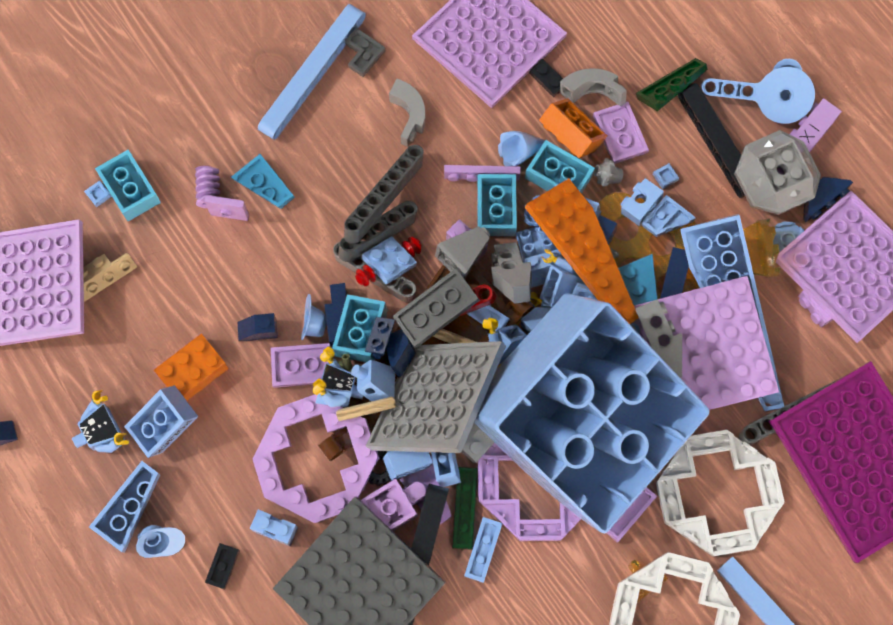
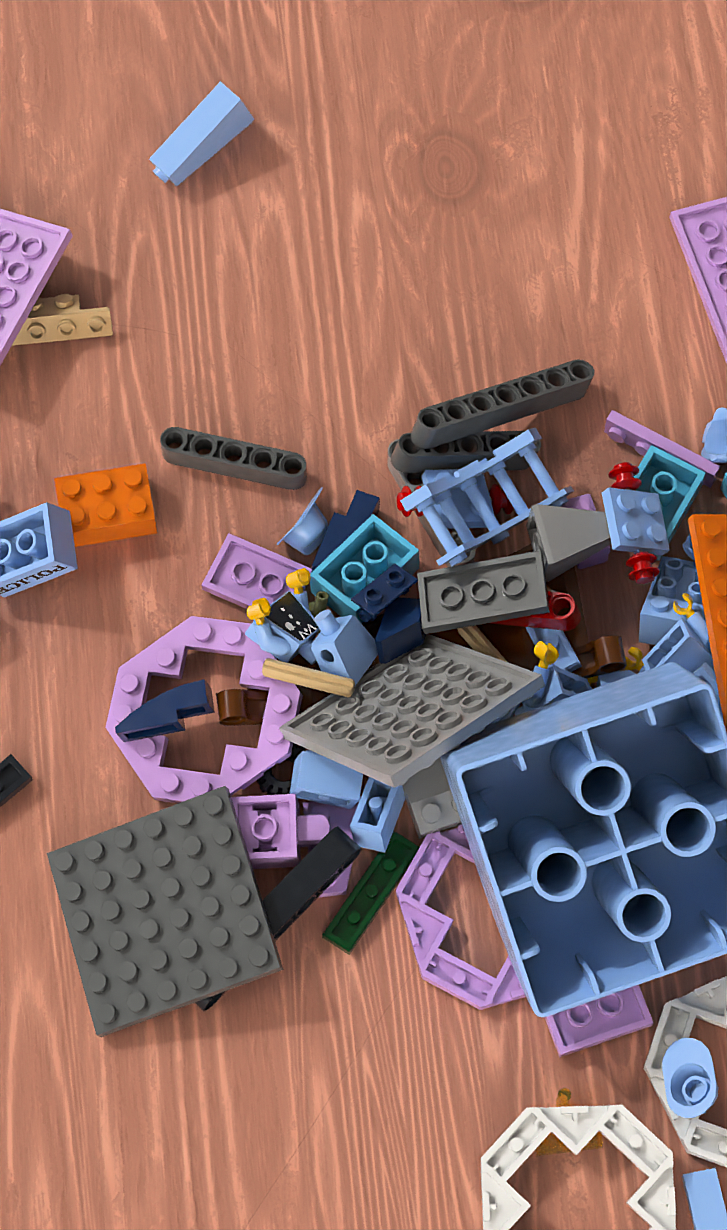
camera: 30 degrees right, 5 degrees down
(98, 193) = (115, 212): light blue tile -> none
(123, 122) = (201, 135): none -> light blue slope
(128, 185) = (160, 219): medium azure brick -> none
(206, 184) = (266, 275): lavender piece -> none
(226, 207) = (276, 315): lavender plate -> none
(239, 299) = (244, 468): none -> dark grey beam
(258, 327) = (228, 498): dark blue slope -> none
(263, 181) = (349, 308): dark azure wing -> none
(283, 530) = (105, 784): light blue brick -> none
(296, 470) = (167, 712): none -> dark blue slope
(311, 72) = (501, 192): light blue beam -> none
(368, 51) = (595, 204): dark grey plate -> none
(389, 248) = (465, 478): none -> light blue fence
(409, 99) = (616, 296): light grey arch -> none
(483, 550) = (363, 961): light blue plate -> none
(495, 223) = (635, 522): none -> light blue plate
(510, 273) = (618, 606): light grey brick -> none
(696, 517) = (689, 1078): none -> light blue piece

